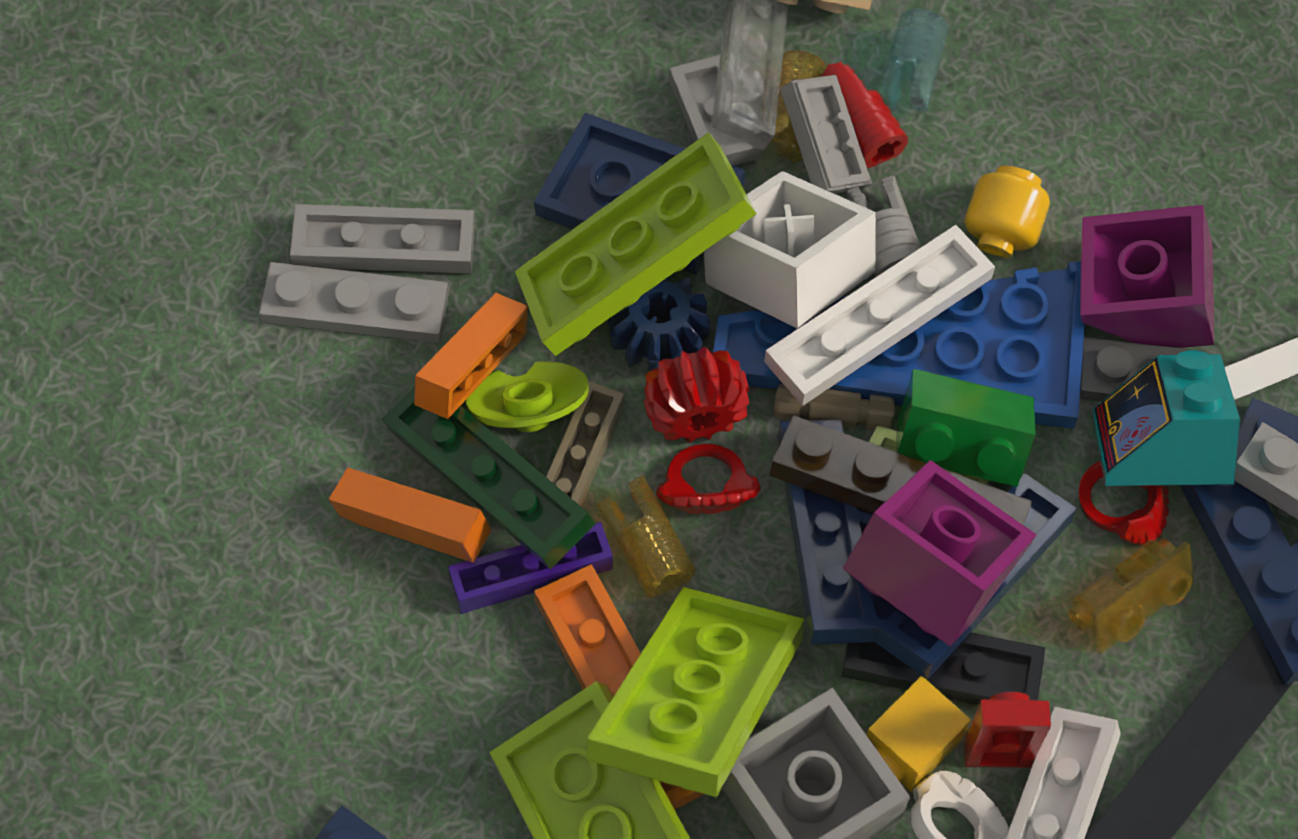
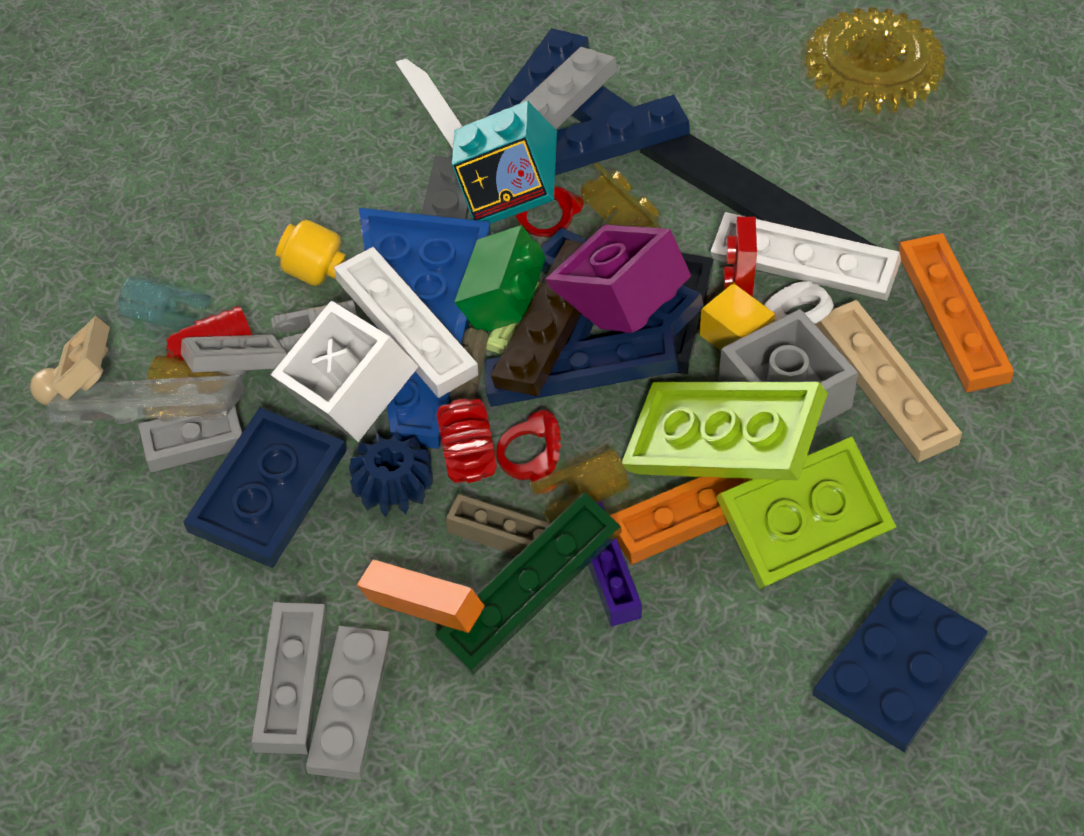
camera: 85 degrees left, 10 degrees down
(411, 514) = (564, 640): orange piece -> none
(530, 399) = (459, 550): lime dish -> none
(633, 244) = (337, 465): lime plate -> none
(1149, 276) = (379, 167): magenta slope -> none

